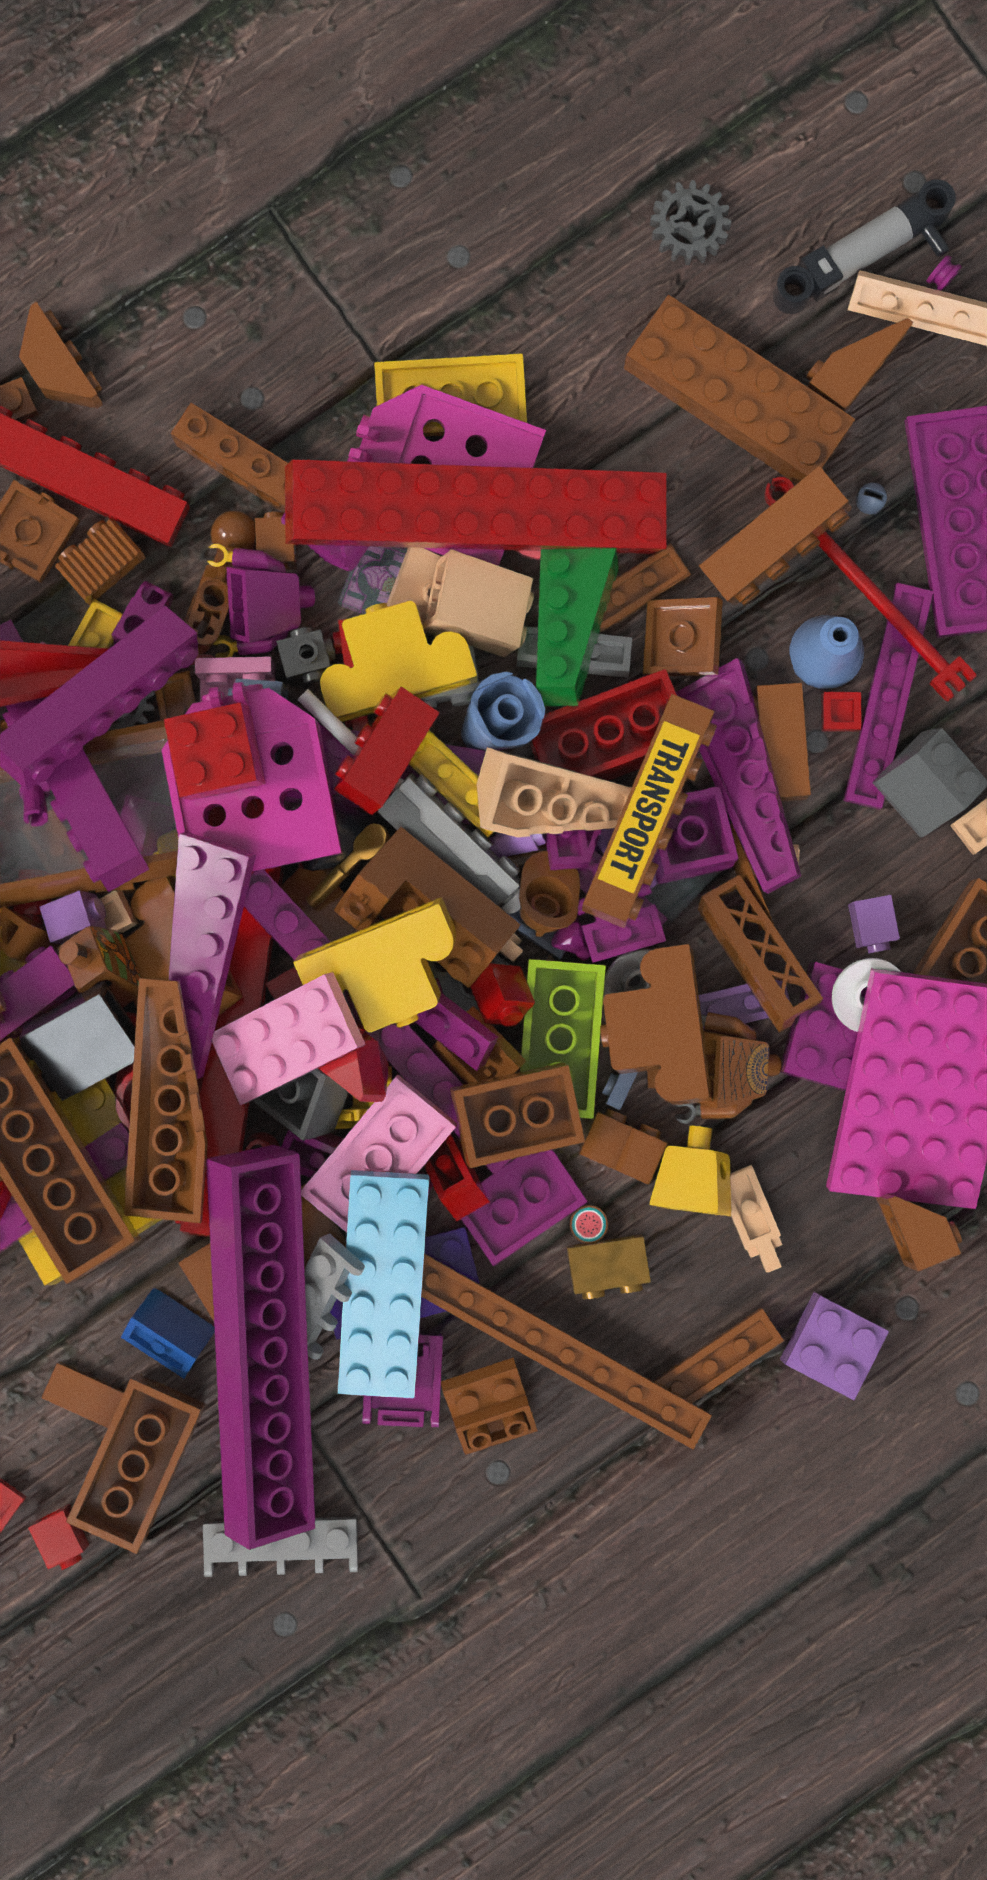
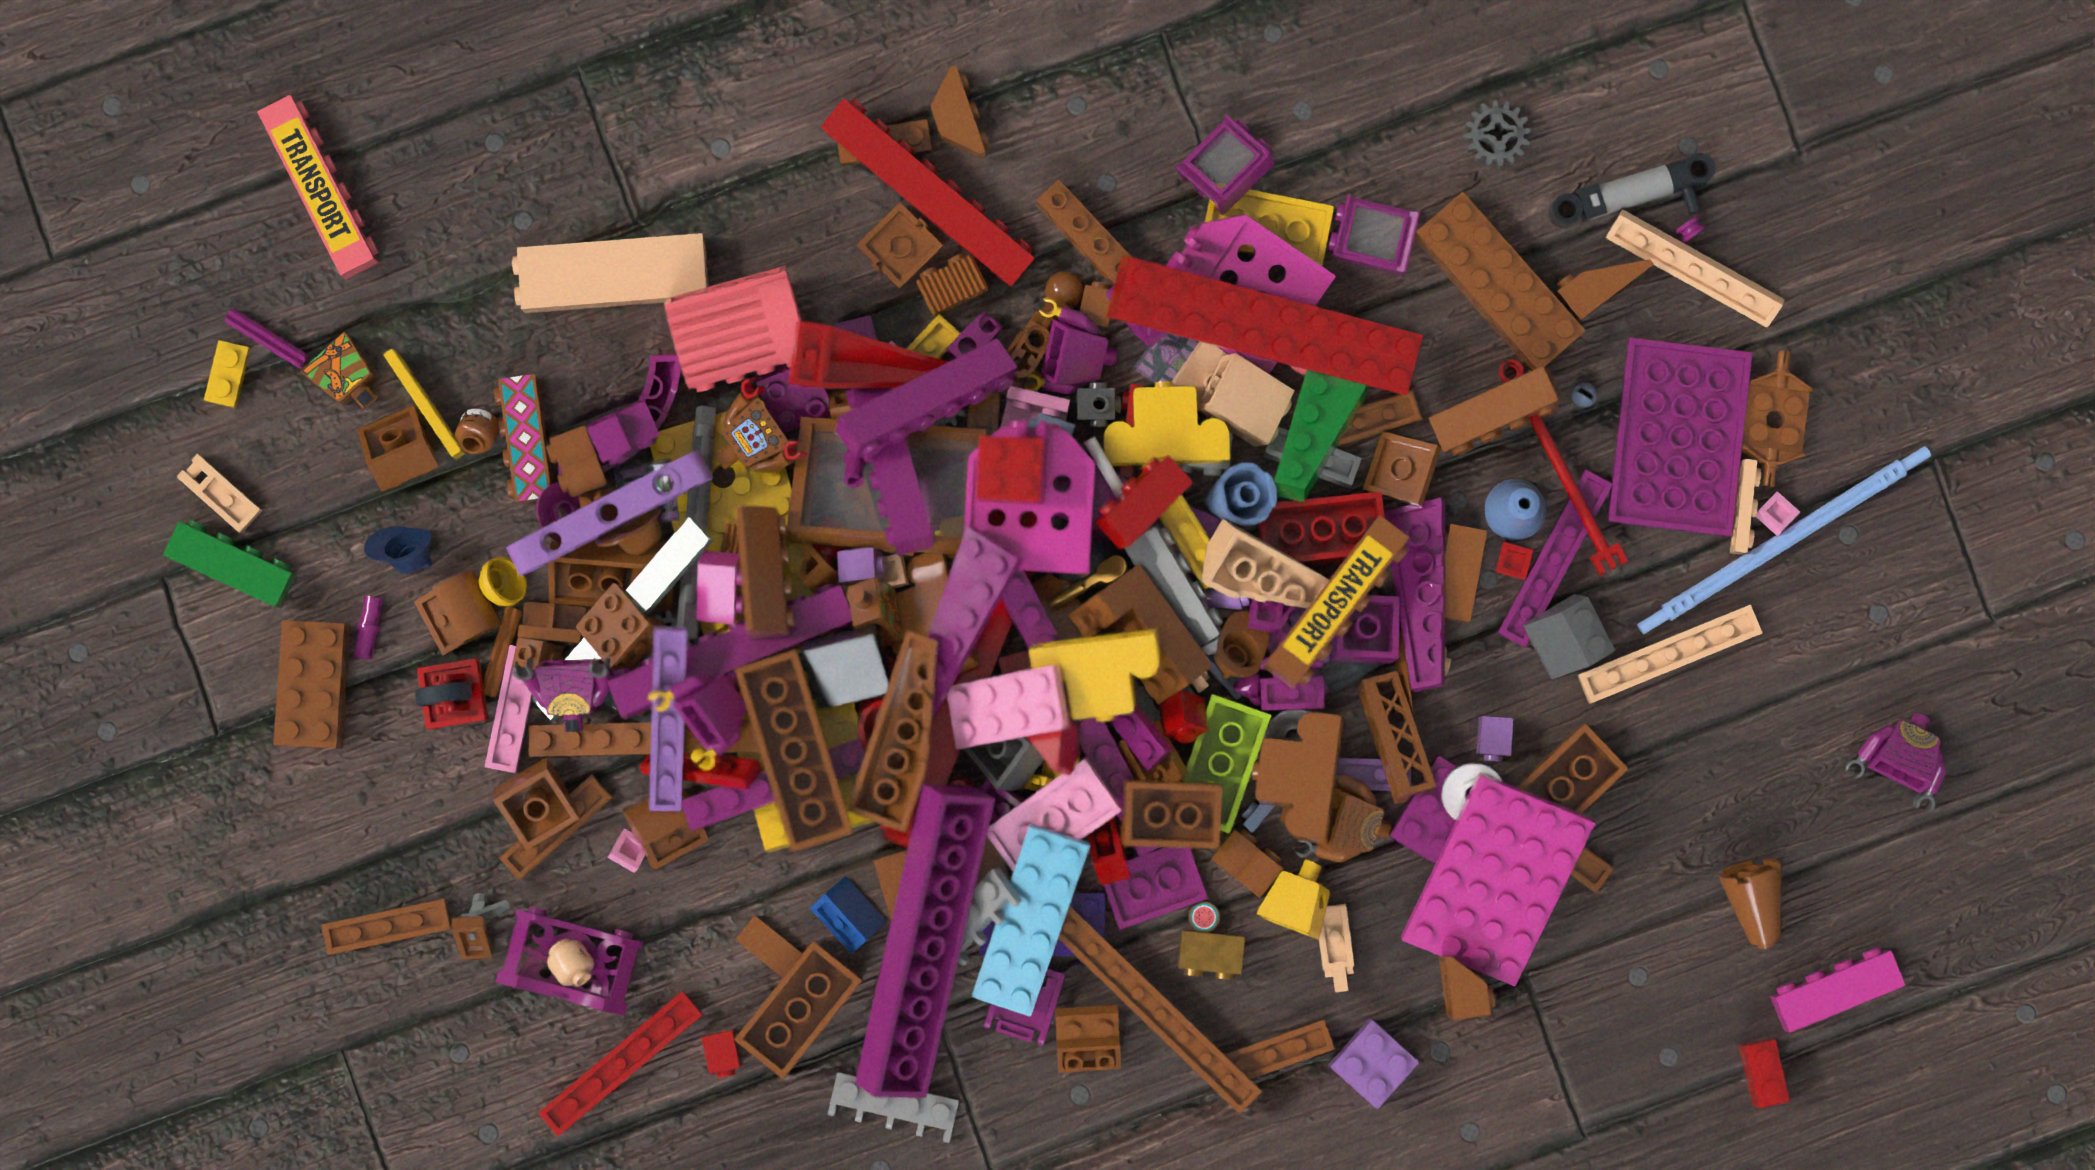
camera: 15 degrees right, 0 degrees up
(384, 336) = (1227, 164): none -> magenta window
(578, 376) = (1373, 235): none -> window

